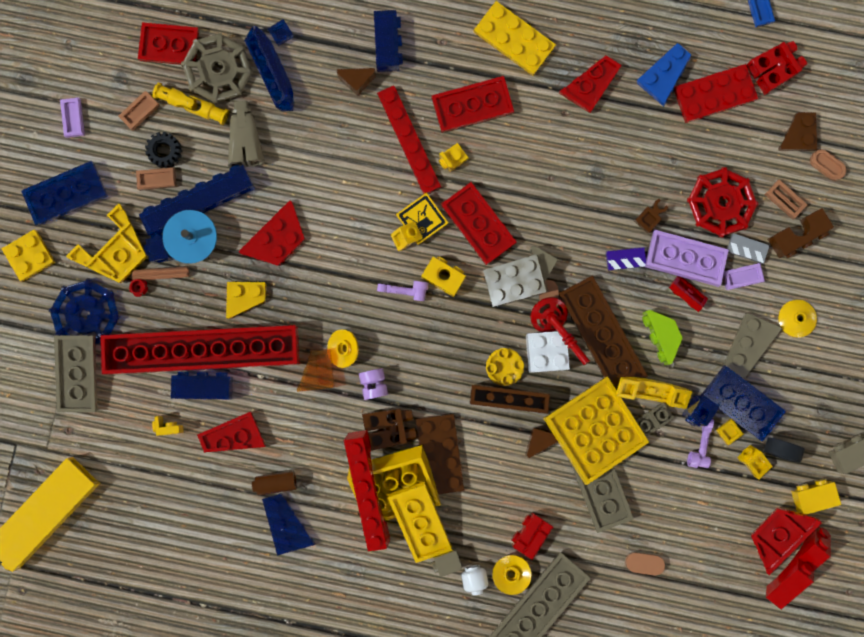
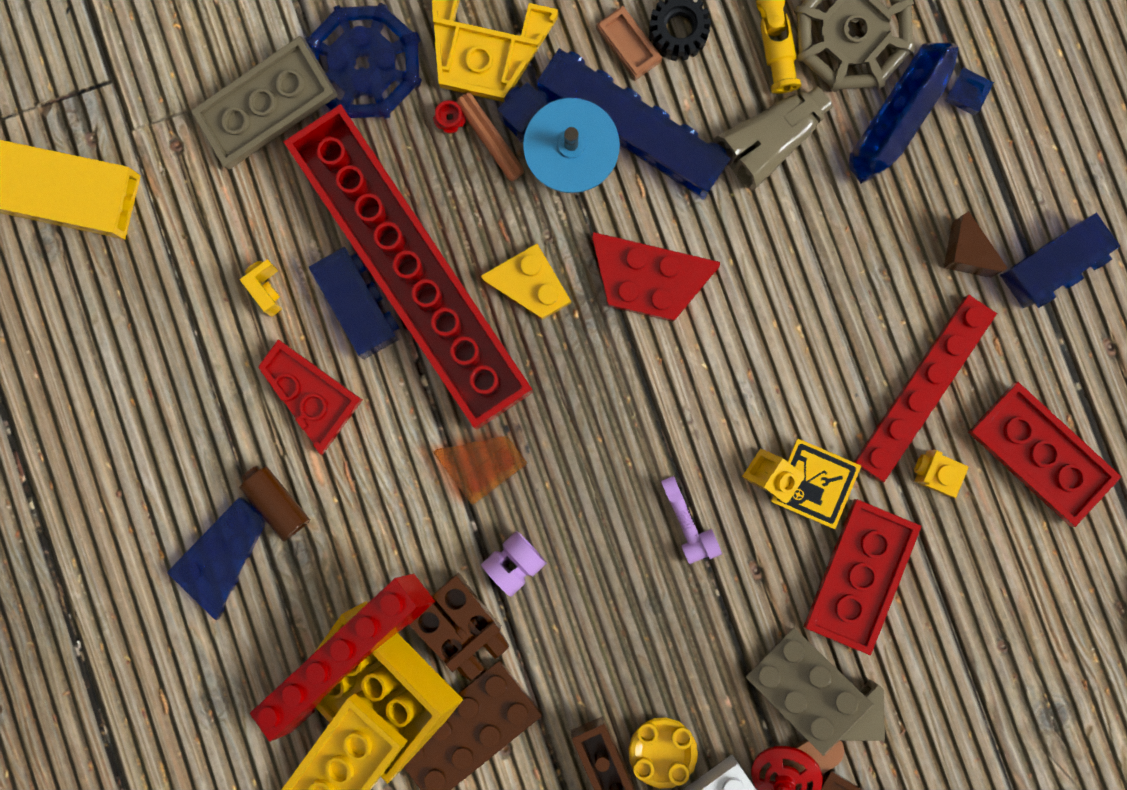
camera: 65 degrees right, 0 degrees up
(338, 343) = (542, 469): yellow dish -> none
(449, 286) = (736, 553): yellow brick -> none

